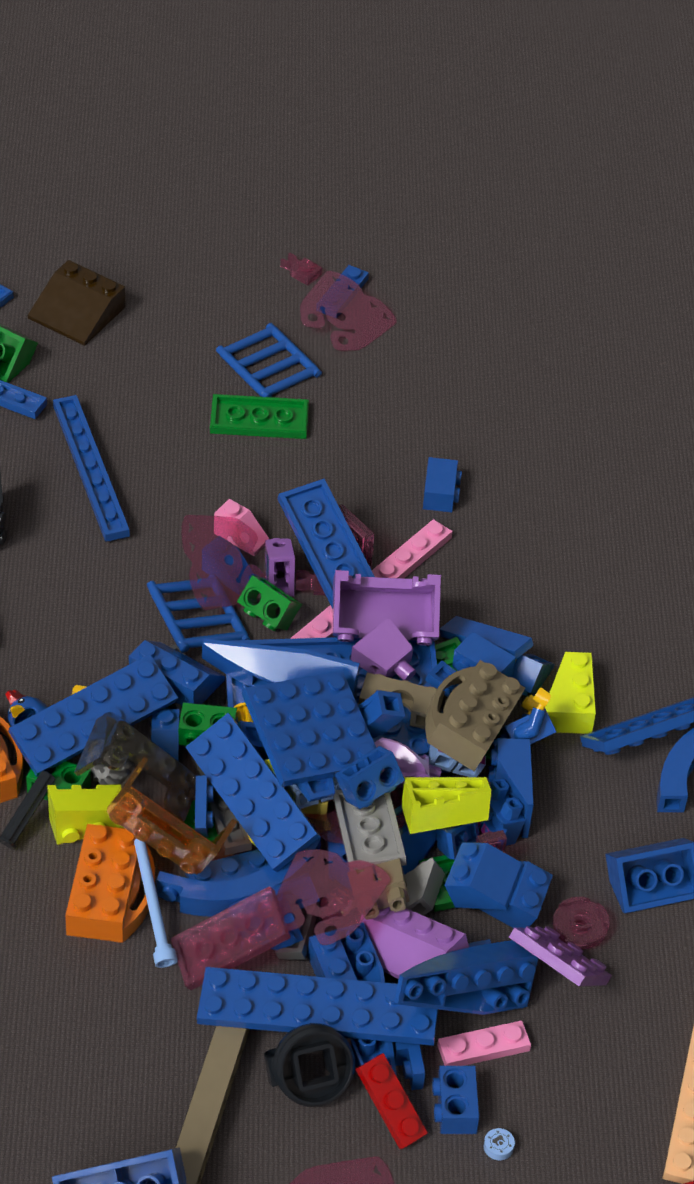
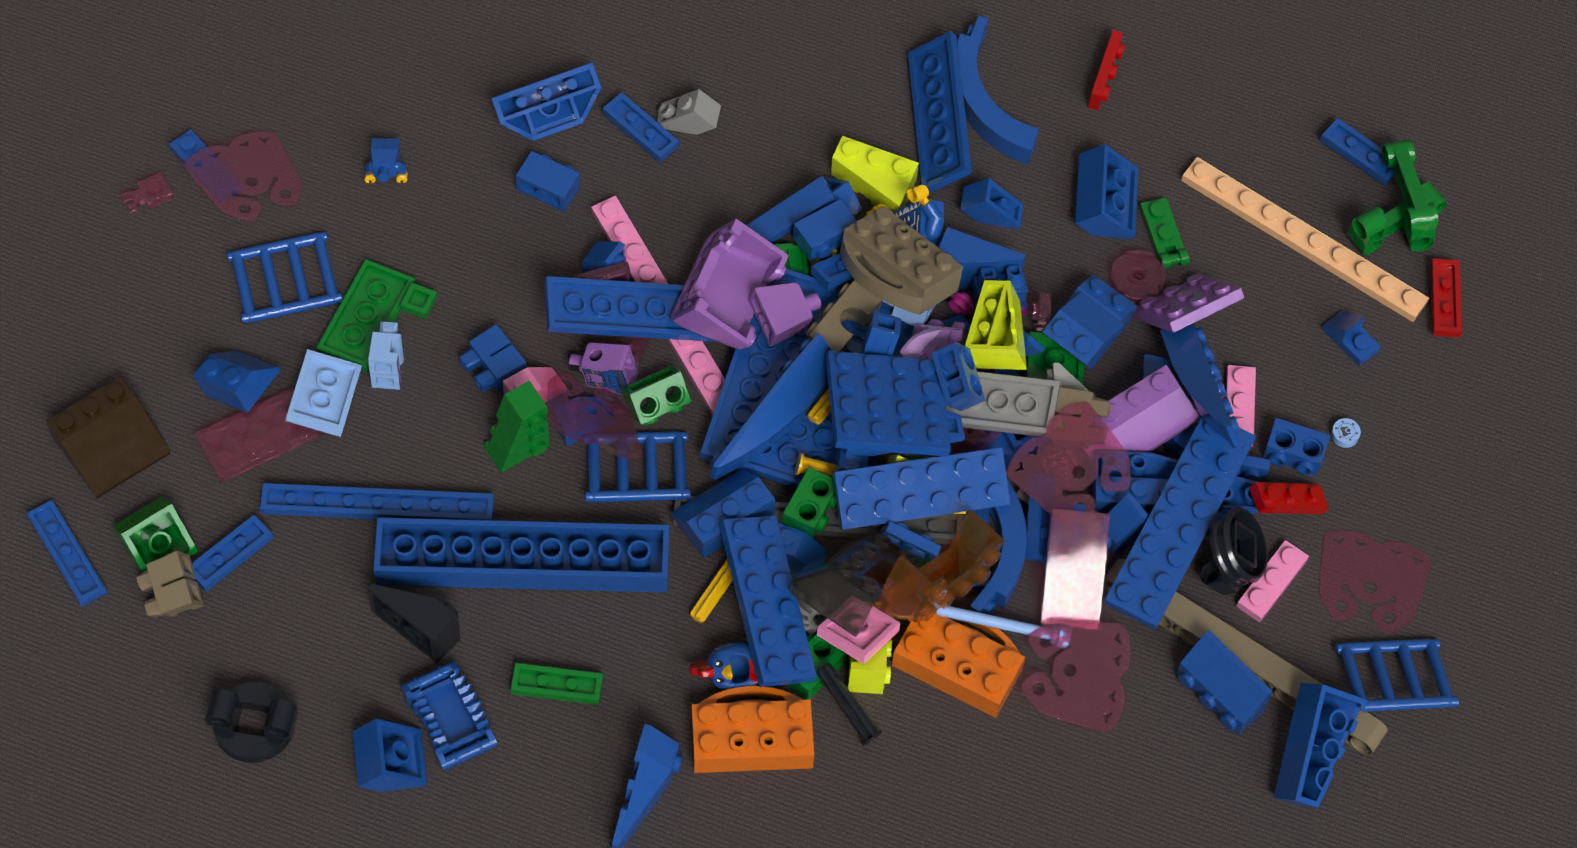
camera: 70 degrees left, 15 degrees up
(79, 562) = (521, 555): none -> blue brick
(92, 788) = (873, 636): none -> bright pink plate
(123, 386) = (253, 437): none -> clear pink plate
(135, 995) = (1096, 675): none -> clear pink piece
(159, 351) = (235, 378): none -> blue slope
(163, 1097) = (1224, 683): none -> blue slope
(170, 404) = (323, 393): none -> light blue plate
(194, 500) = (520, 428): none -> green wedge
(218, 429) = (386, 357): none -> light blue hips
(256, 494) = (494, 356): none -> blue hips
(286, 439) = (418, 301): none -> green plate
(299, 961) = (1125, 524): none -> blue slope
(302, 1121) = (1276, 578): none -> bright pink plate
(382, 538) = (604, 255): none -> blue slope
(402, 382) = (385, 161): none -> blue piece
(510, 460) = (549, 103): none -> blue wedge
(528, 529) = (640, 127): none -> blue plate
(559, 554) = (689, 113): none -> light grey slope
(591, 789) = (991, 204): none -> blue slope
(611, 1123) = (1349, 335): none -> blue slope
(640, 934) = (1163, 233): none -> green plate

